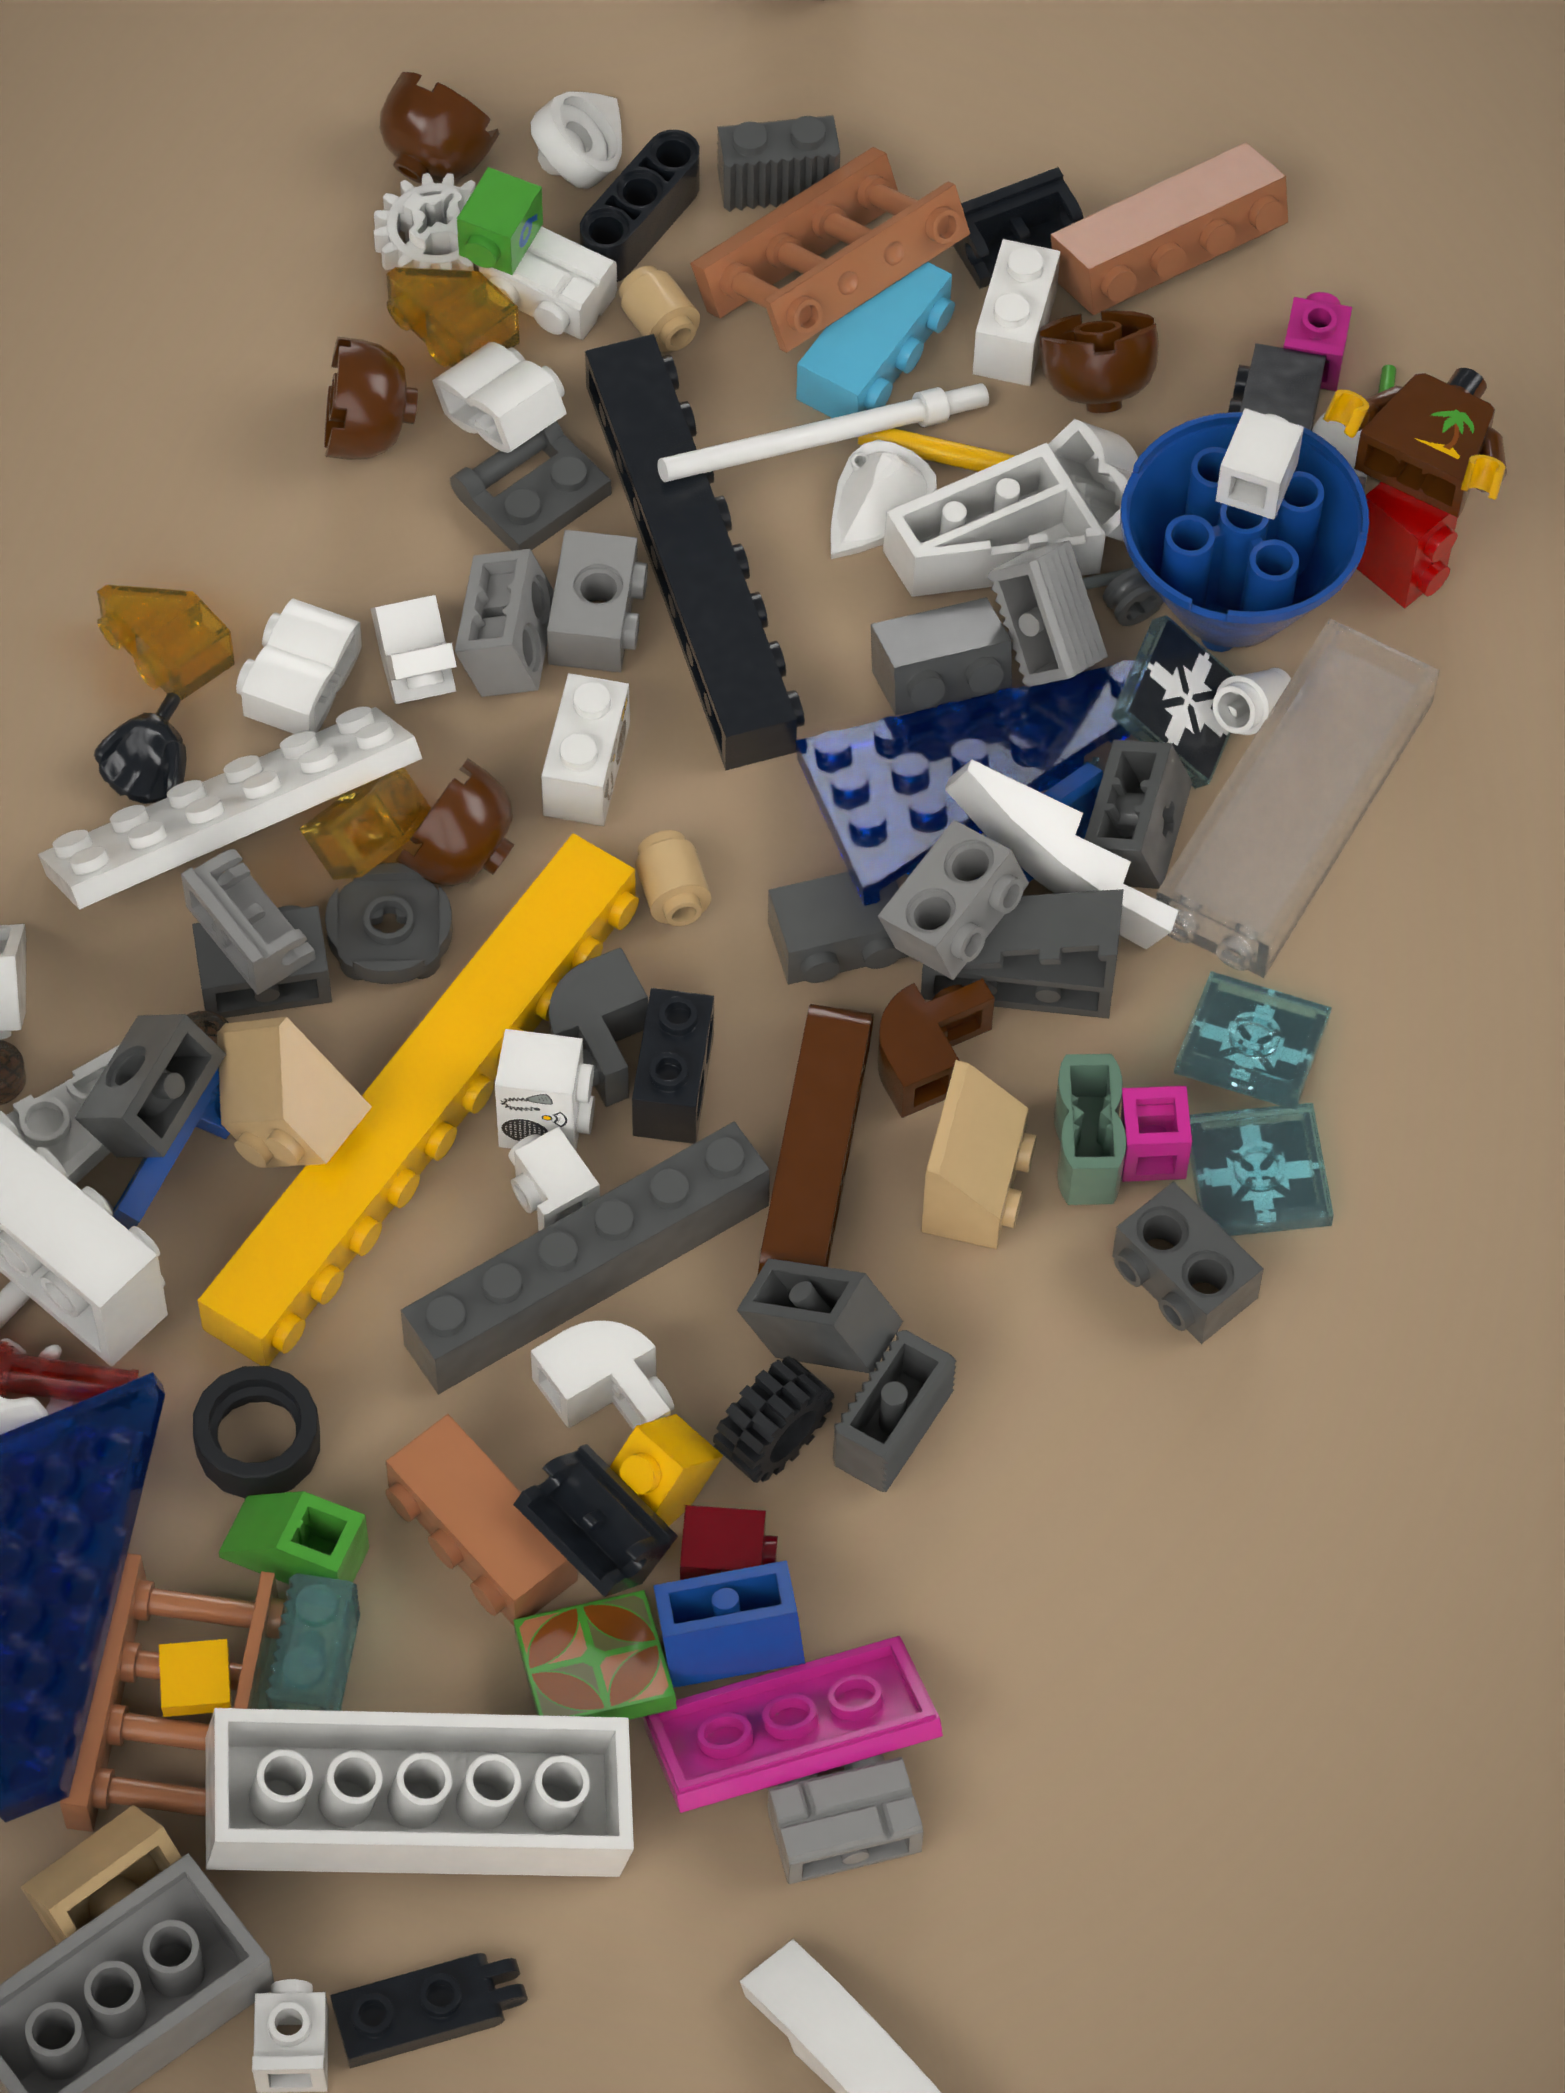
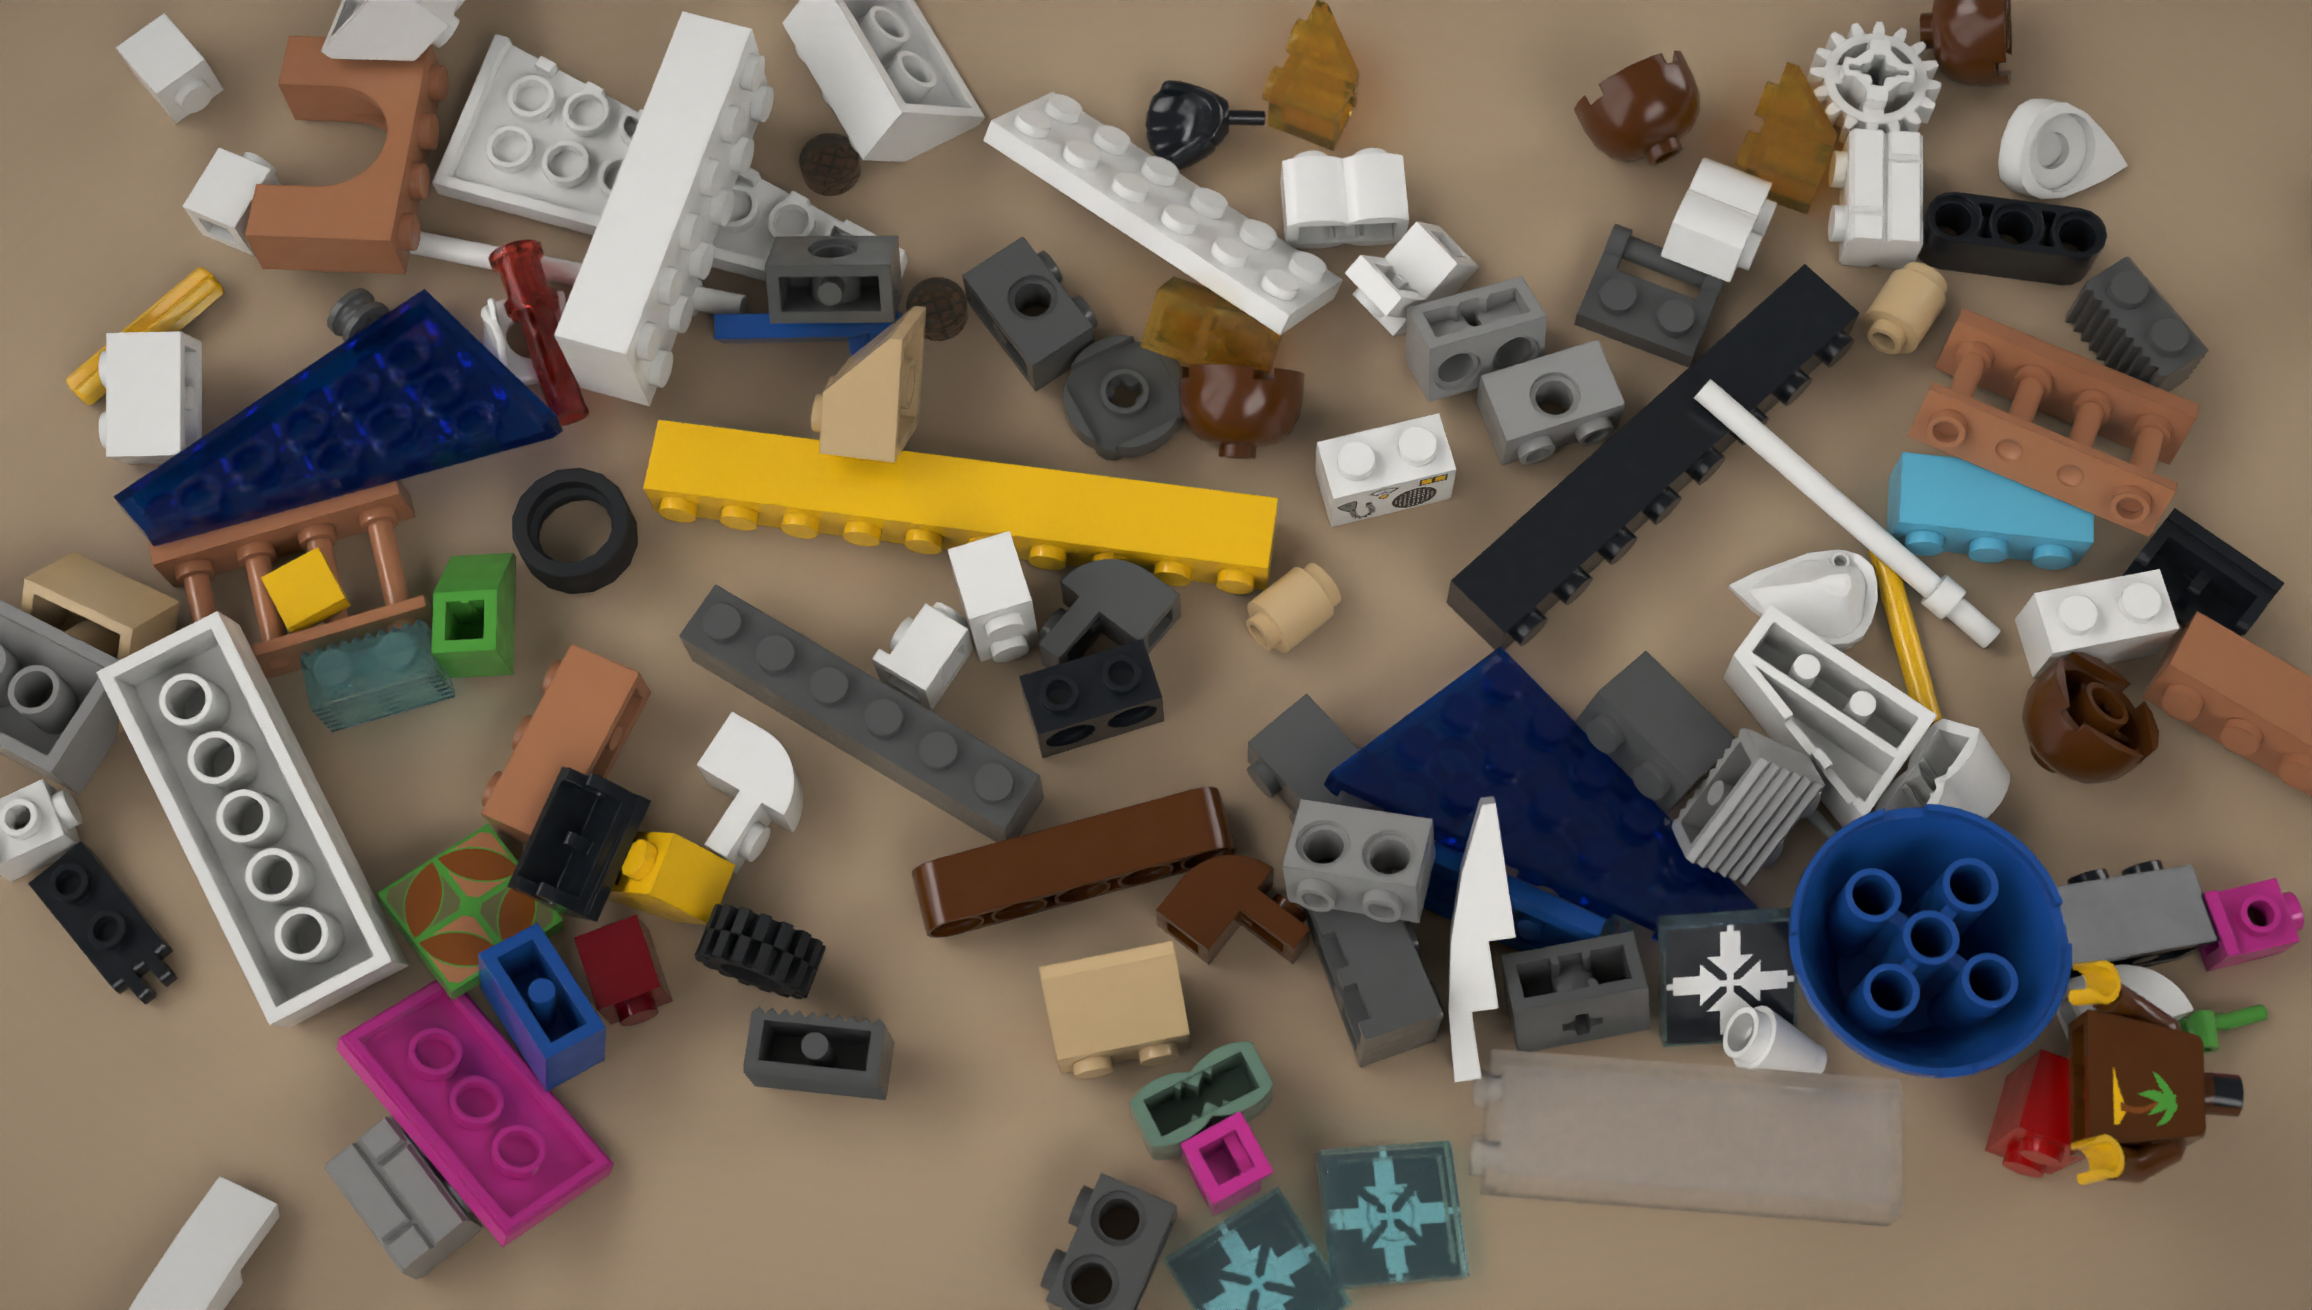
camera: 70 degrees right, 10 degrees up
(244, 921) = (1034, 273): light grey hinge -> none
(499, 221) = (1889, 120): bright green brick -> none
(820, 1315) = (875, 944): dark grey brick -> none
(1259, 463) = (1987, 923): white brick -> none

